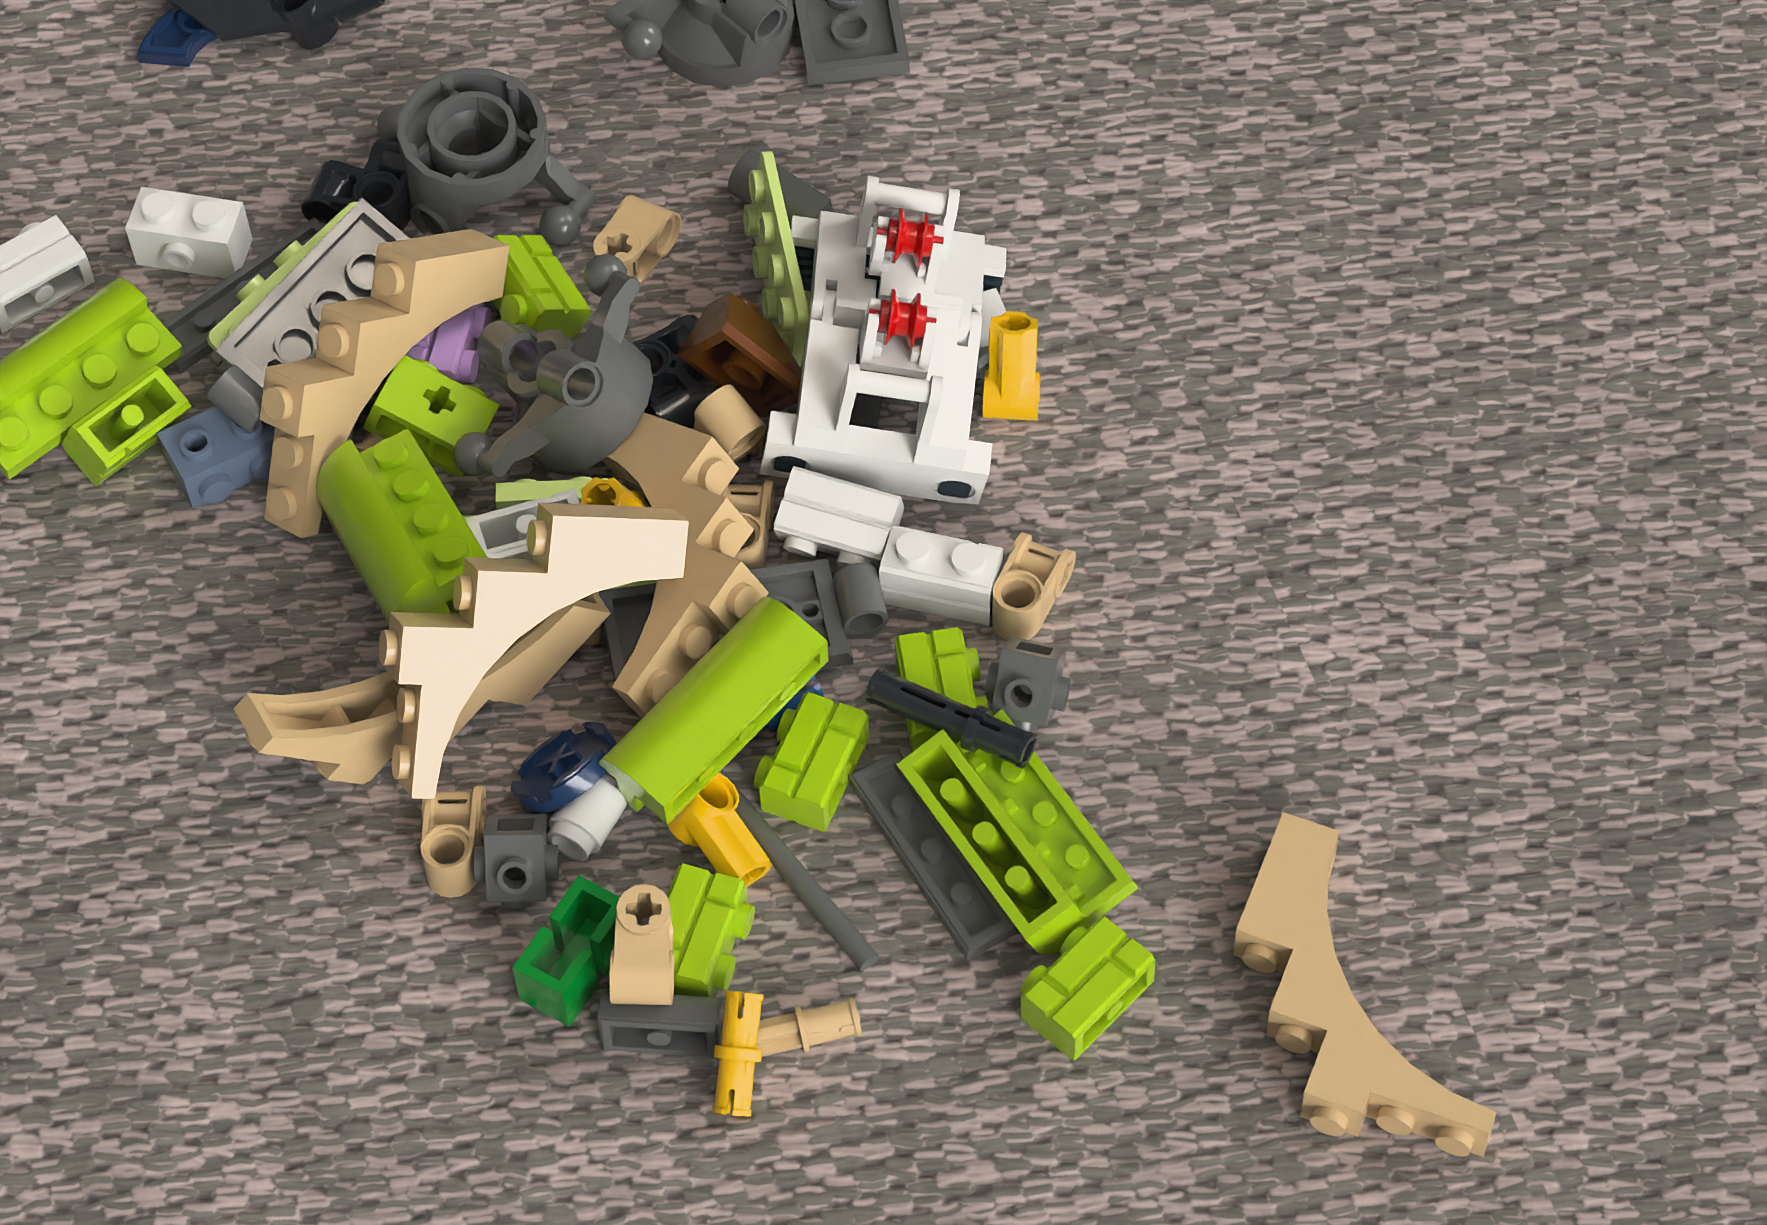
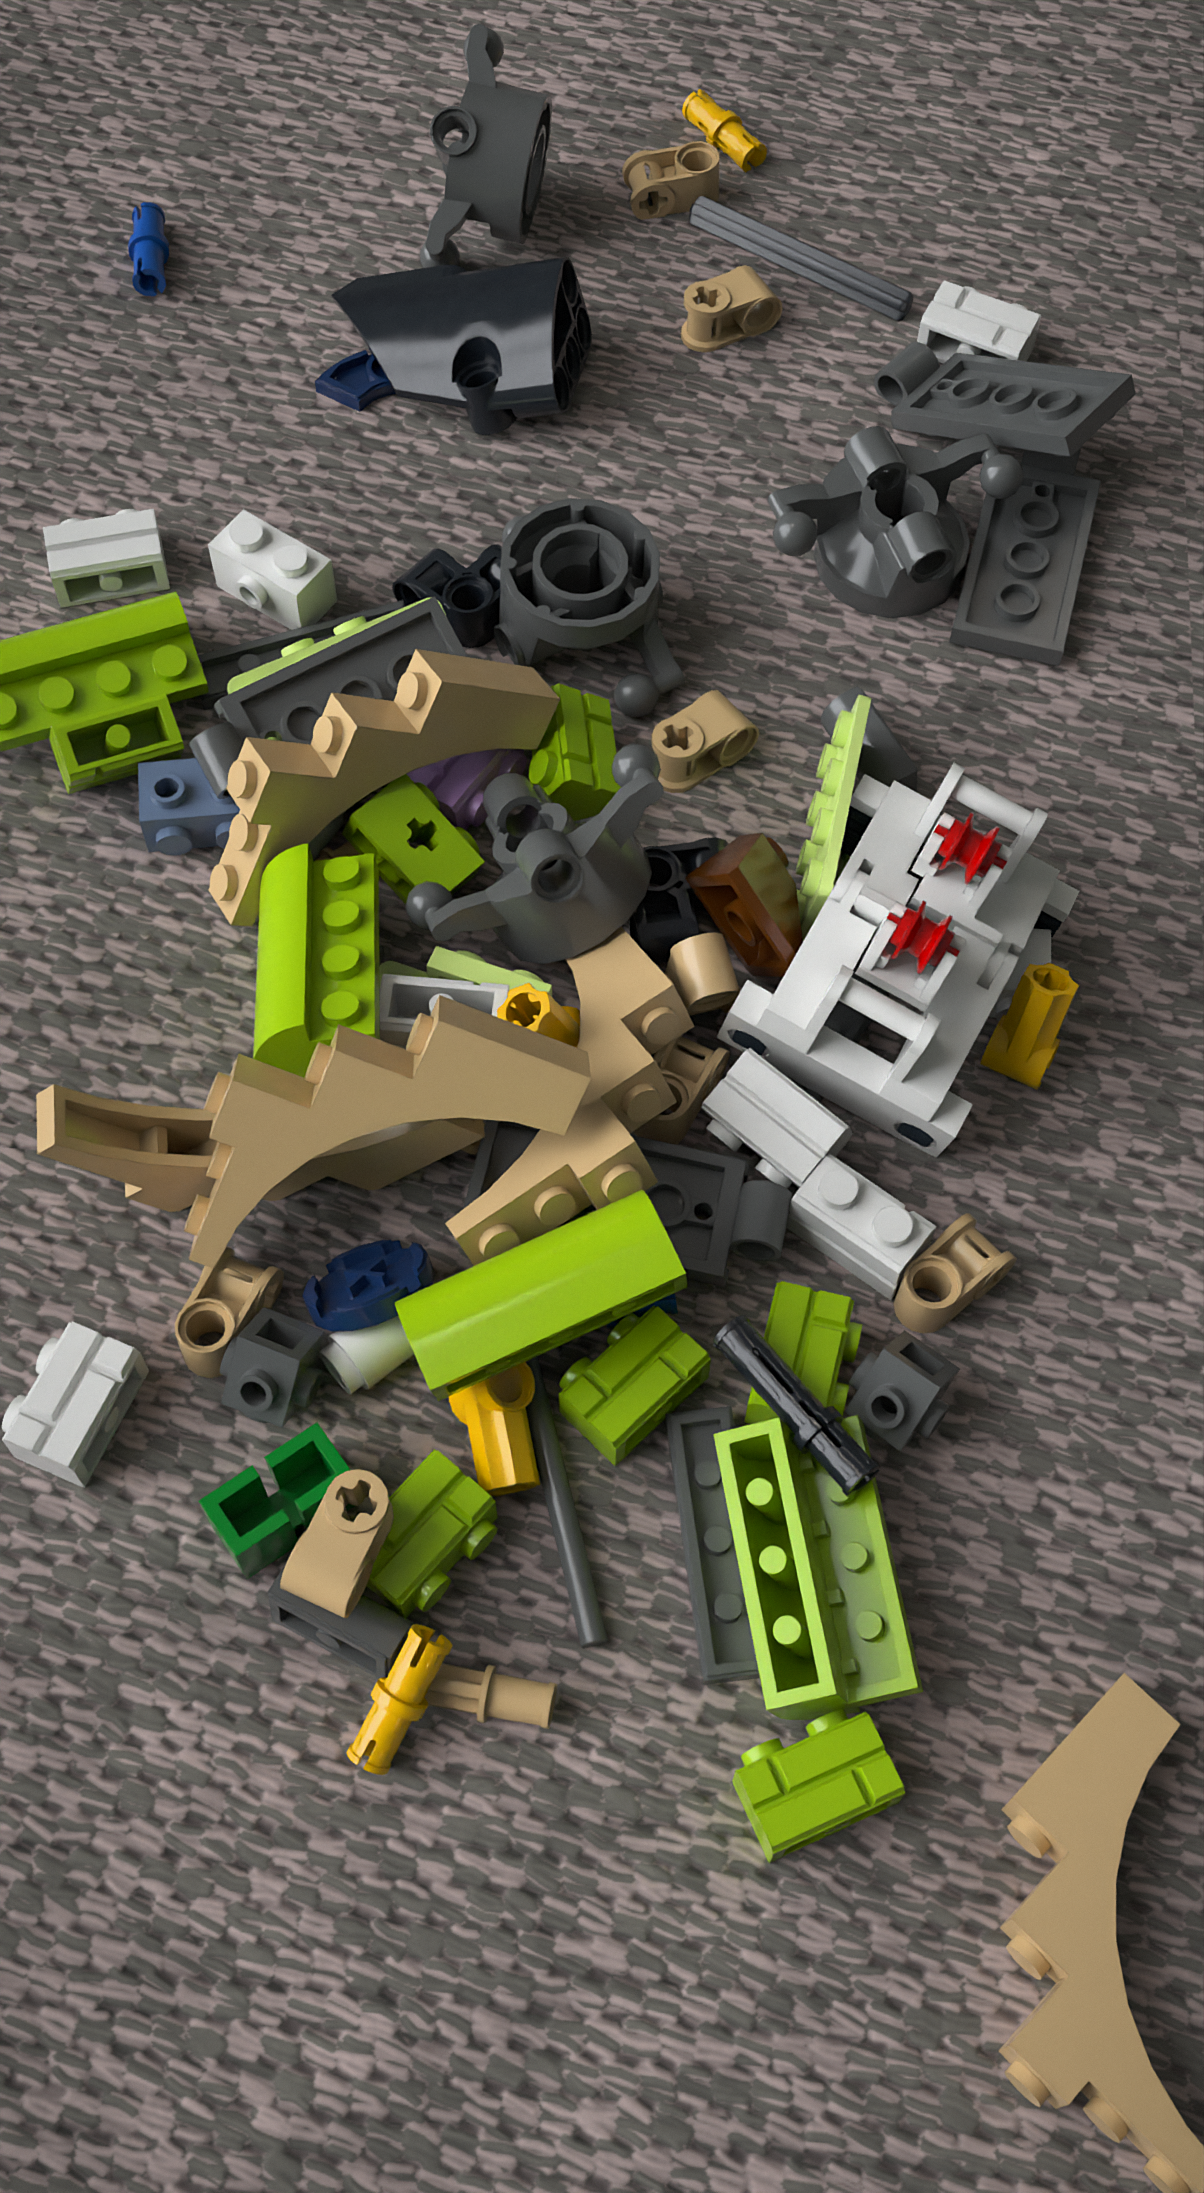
camera: 20 degrees right, 5 degrees up
(363, 951) = (74, 1403): none -> white brick

